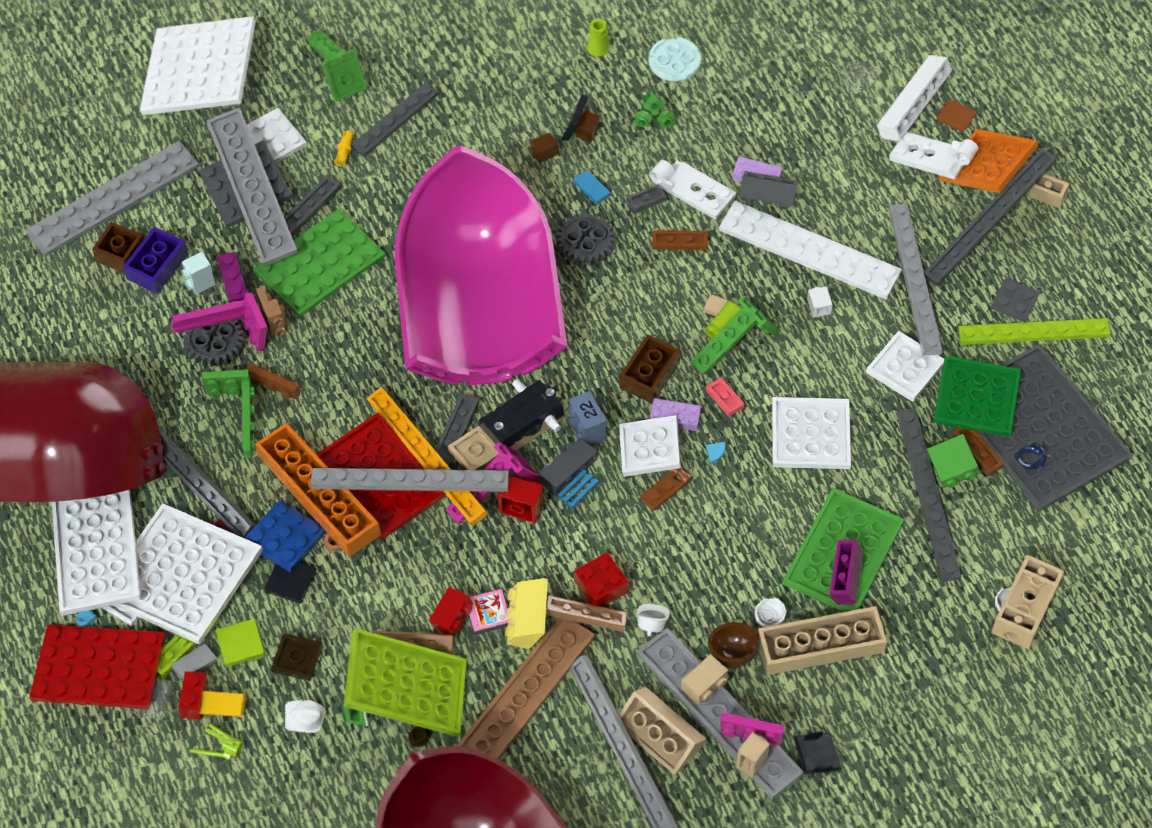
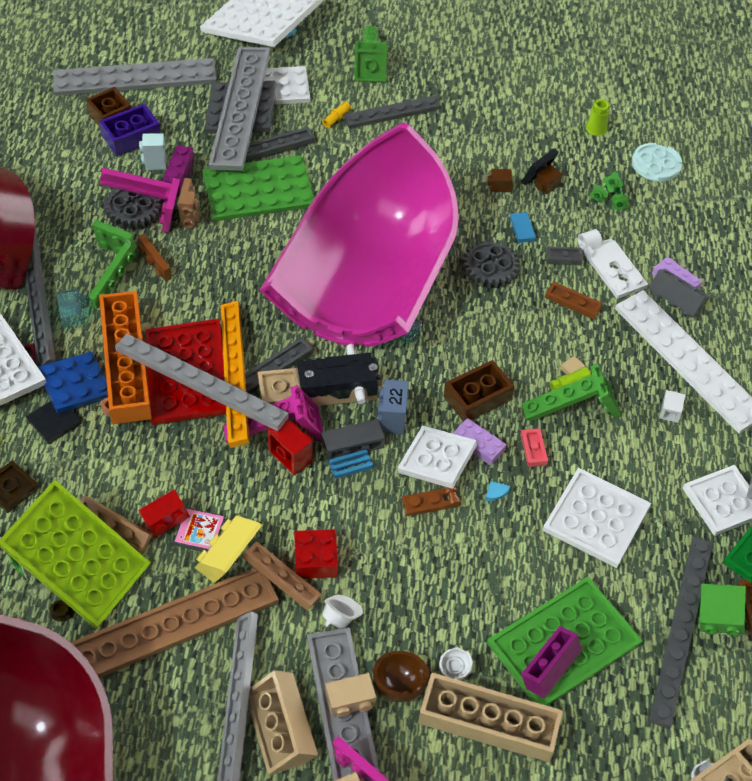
camera: 25 degrees right, 5 degrees down
(230, 468) = (71, 309): none -> clear light blue brick

